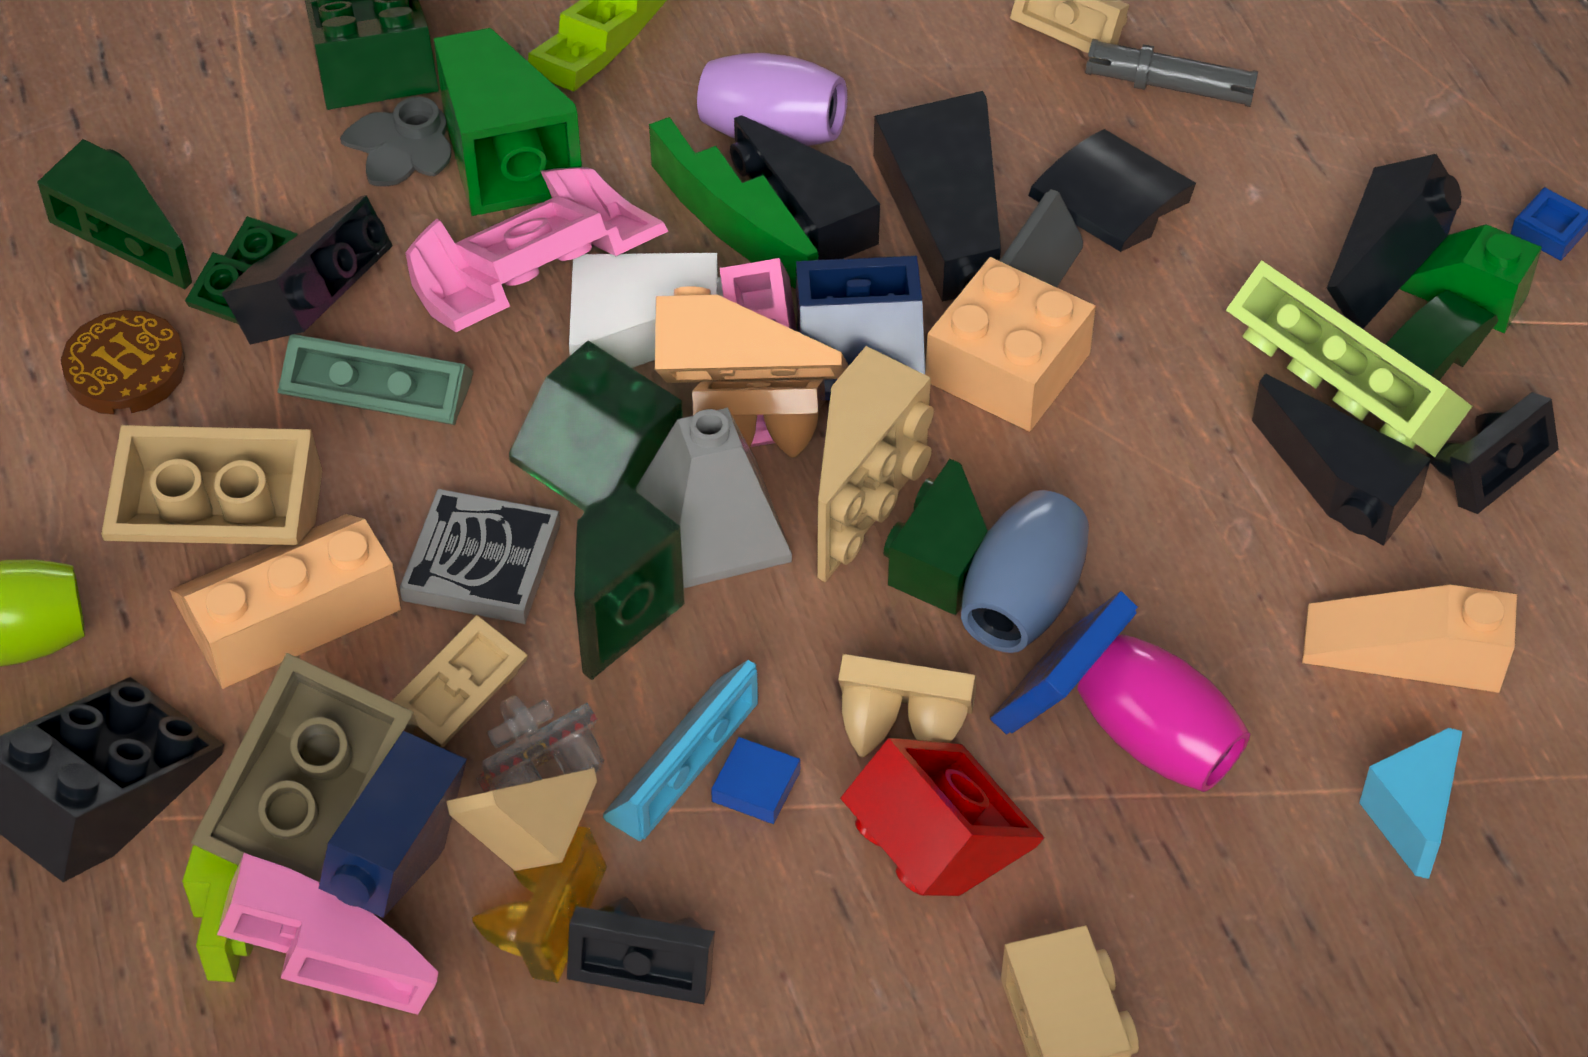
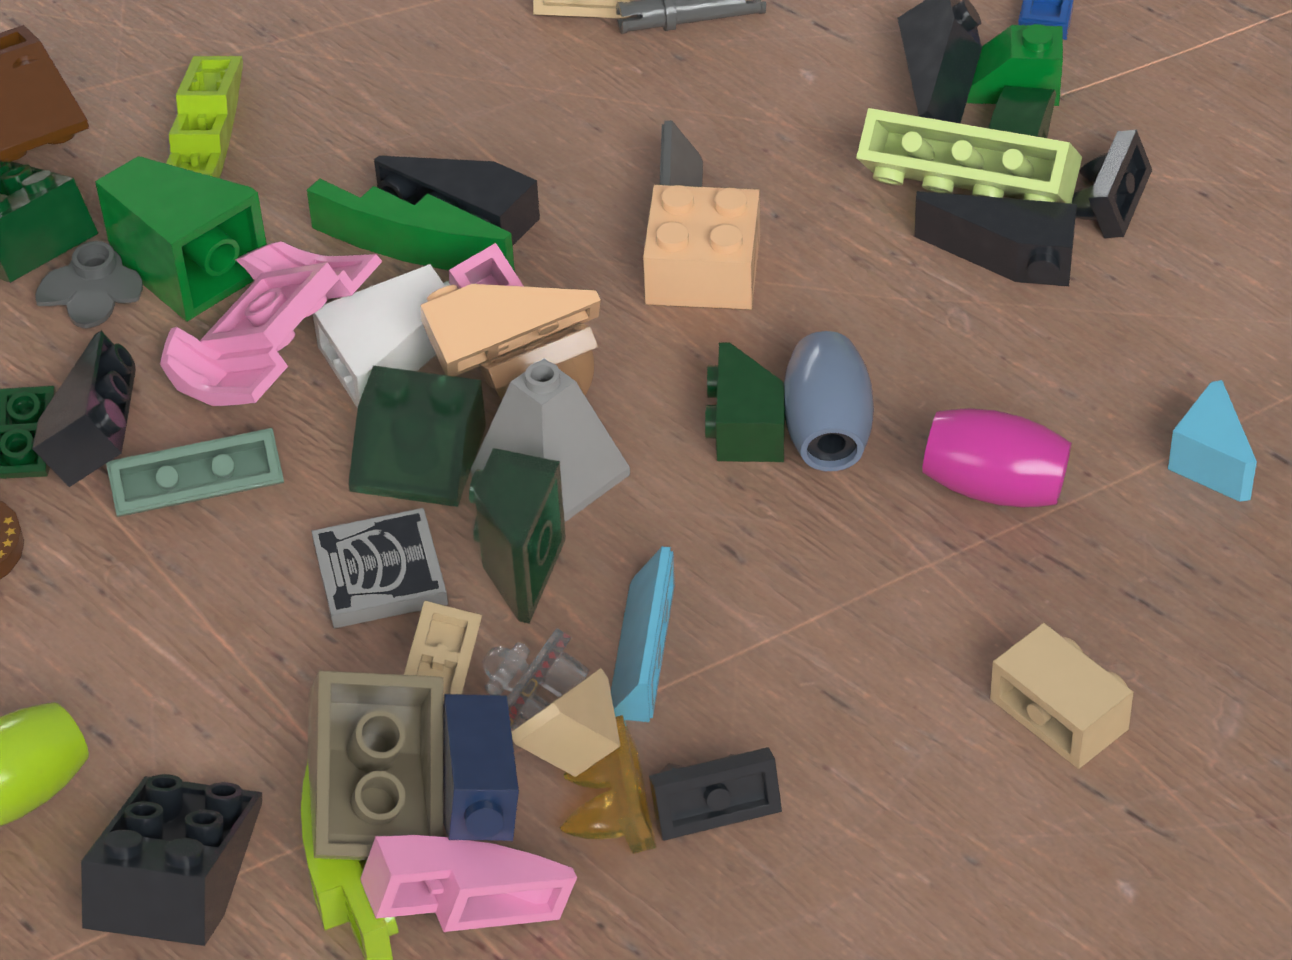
camera: 25 degrees left, 5 degrees down
(213, 485) = (129, 595): tan slope -> none
(289, 598) = (242, 659): light nougat slope -> none
(755, 780) = (714, 638): blue tile -> none
(776, 92) = (390, 126): lavender piece -> none
(863, 305) = (586, 254): dark blue slope -> none
(870, 451) = (649, 362): tan slope -> none
(876, 689) = (768, 531): tan tile -> none
(938, 816) = (873, 603): red slope -> none
(943, 185) = (574, 155): black slope -> none
(1065, 664) = (904, 452): blue tile -> none
(1114, 189) = (705, 107): black slope -> none
(1417, 634) = (1146, 331): light nougat slope -> none

